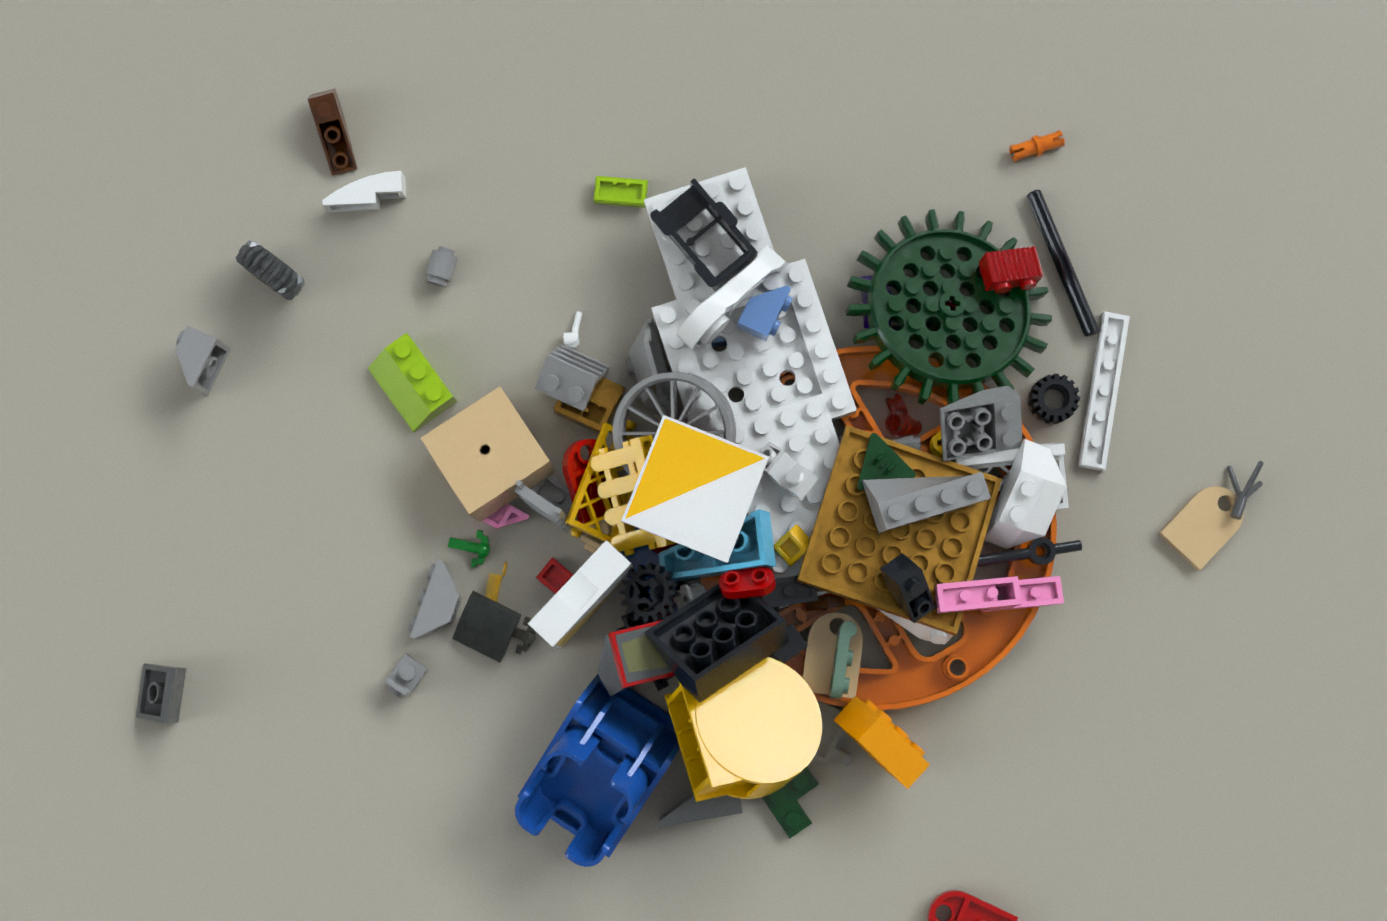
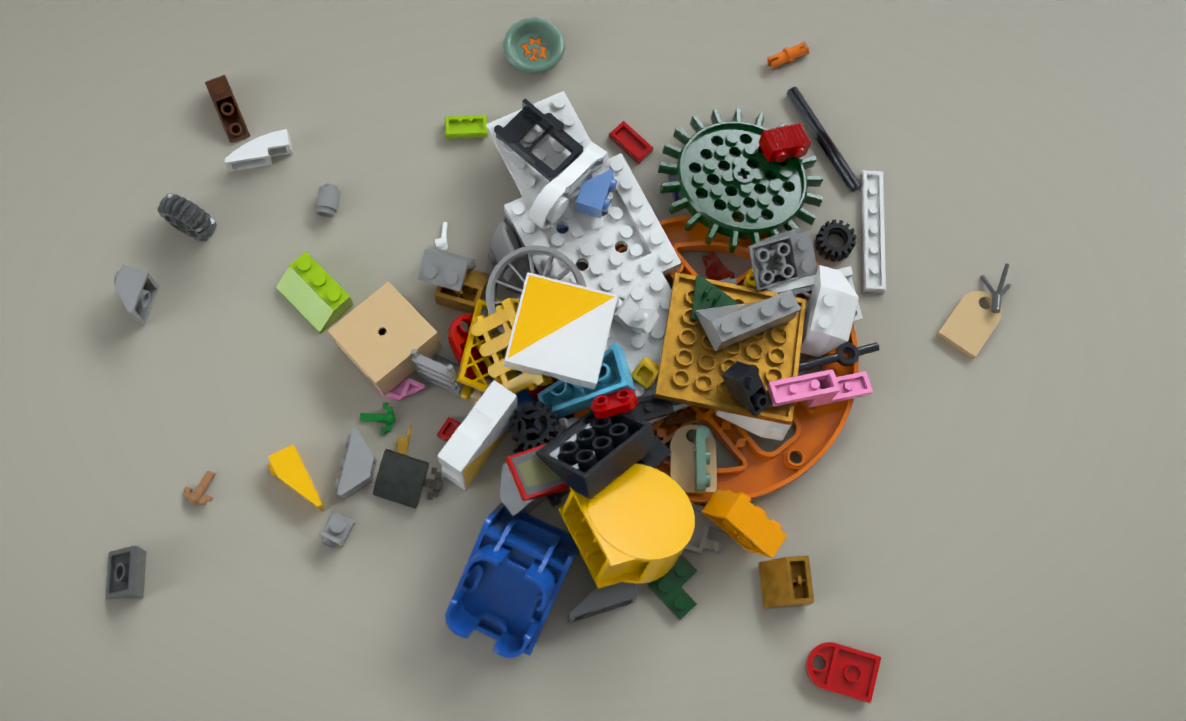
camera: 15 degrees left, 10 degrees down
(248, 614) = (196, 497): none -> medium nougat piece
(363, 601) = (291, 471): none -> yellow slope
(718, 95) = (534, 45): none -> sand green piece
(821, 237) = (631, 142): none -> red tile
(920, 815) = (786, 582): none -> pearl gold slope

